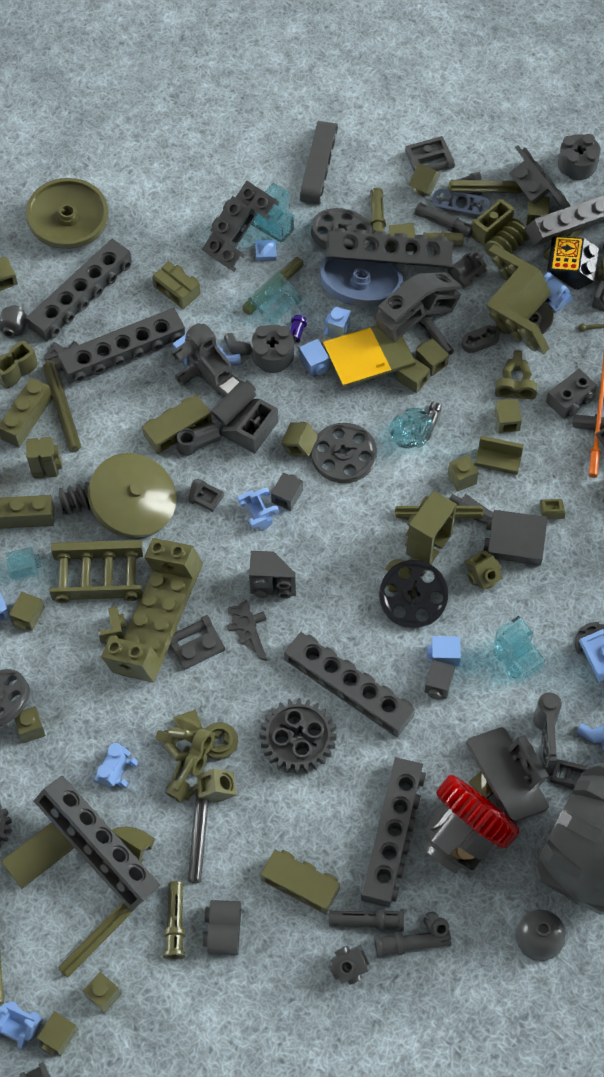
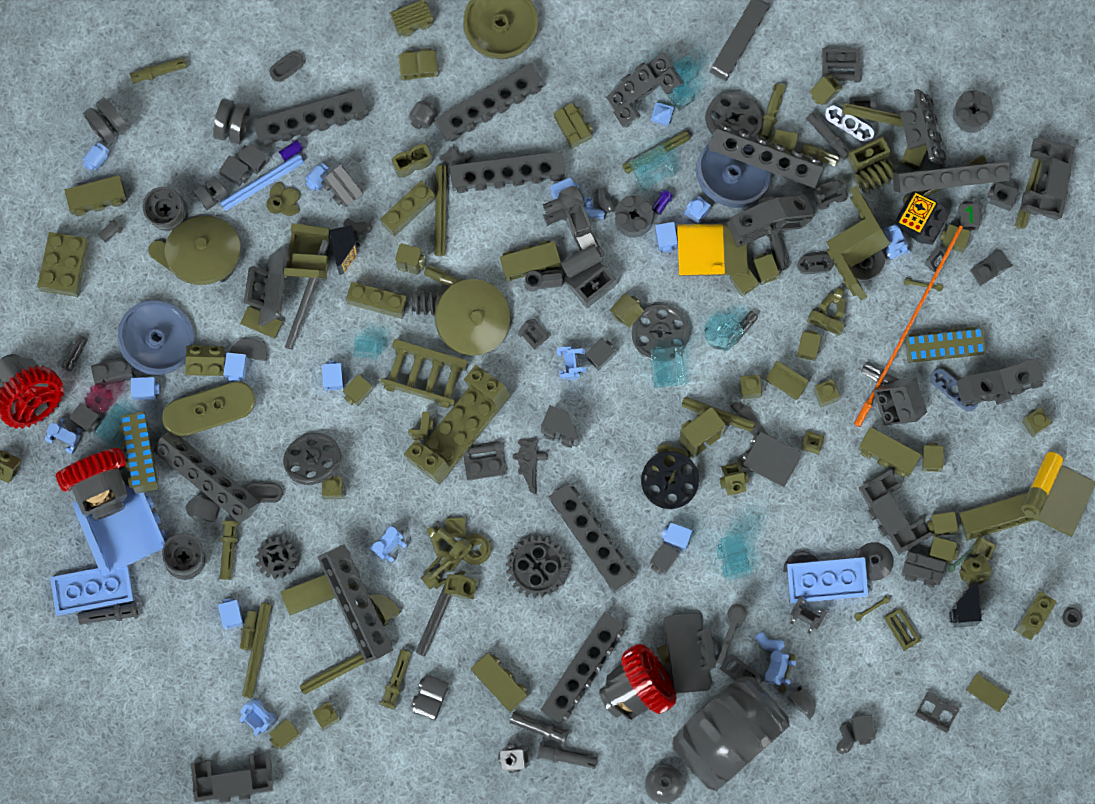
camera: 20 degrees right, 15 degrees up
(79, 468) = (440, 276): none -> olive axle
(360, 483) = (662, 366): none -> clear light blue plate
(437, 925) = (588, 751): dark grey pin -> none
(546, 454) = (826, 393): none -> olive brick
(571, 394) = (870, 344): dark grey brick -> none

